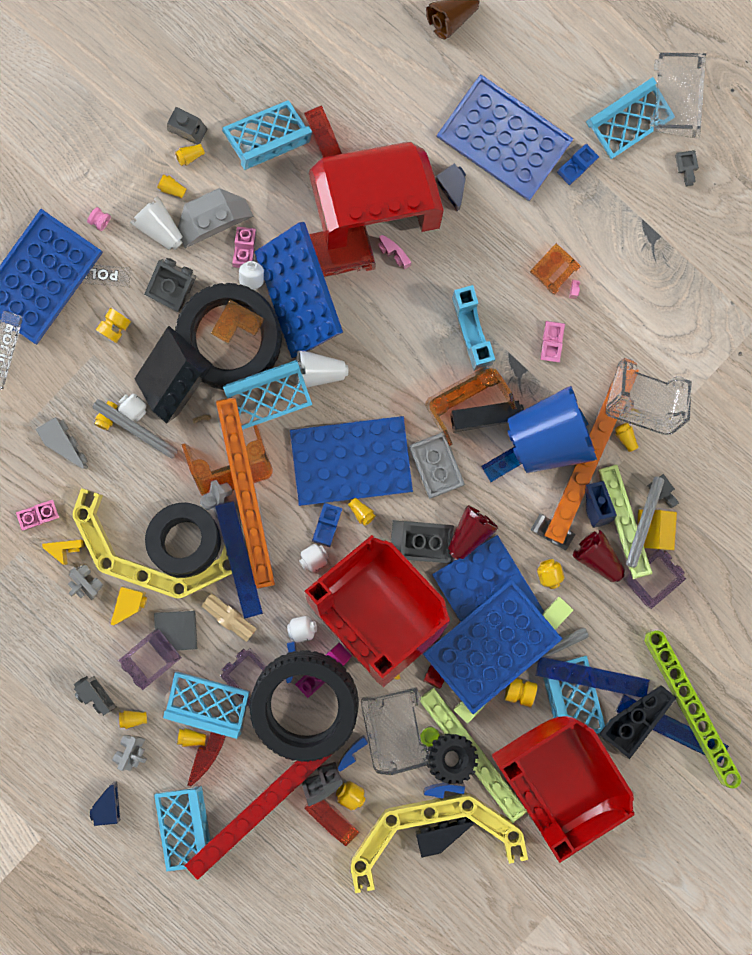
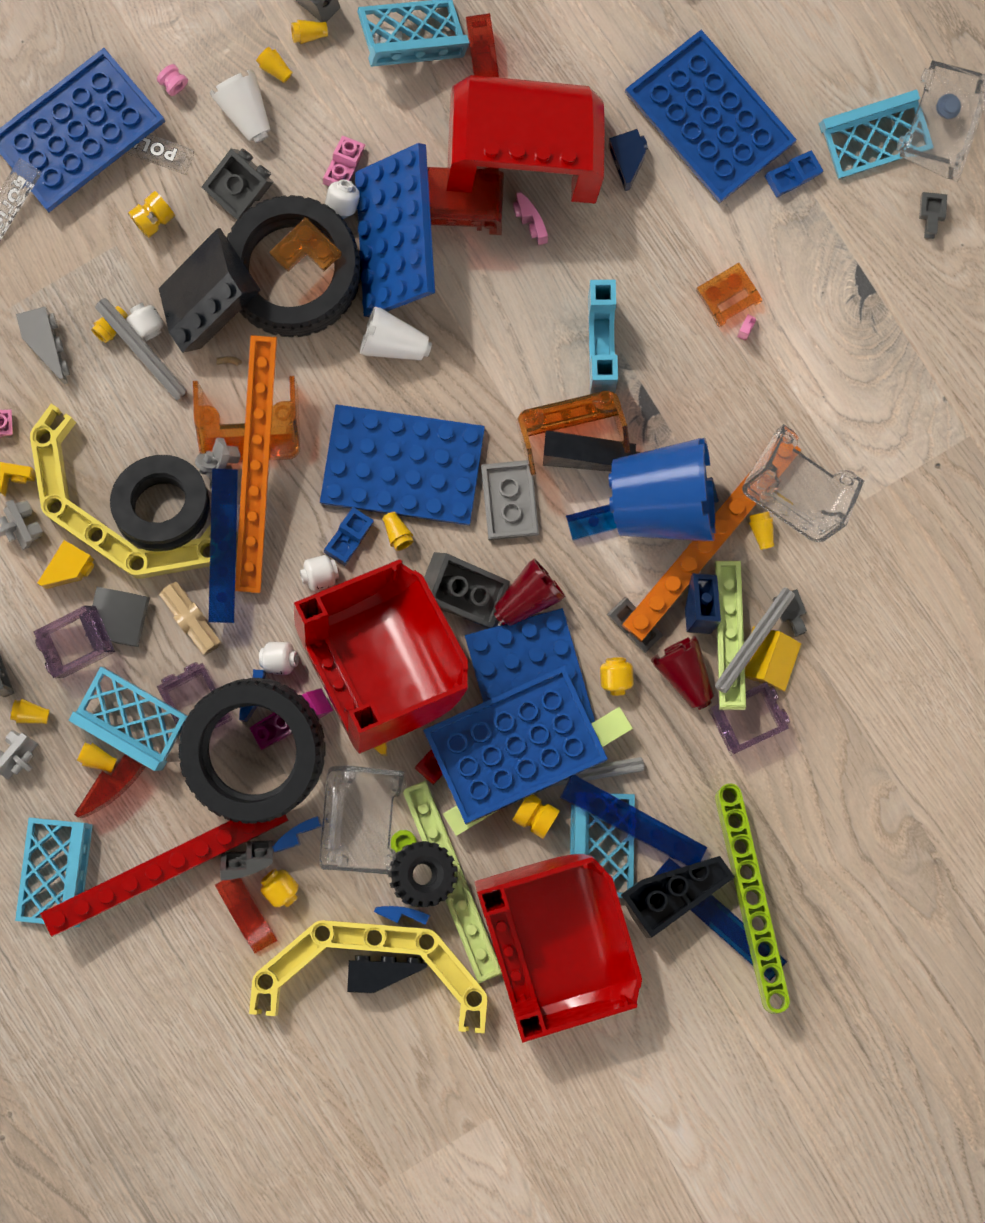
camera: 15 degrees right, 5 degrees down
(211, 215) = (314, 113): light grey wedge -> none
(267, 377) = (321, 325): medium azure fence -> none
(552, 341) = (700, 384): bright pink slope -> none
(679, 83) = (948, 106): none -> sand blue plate

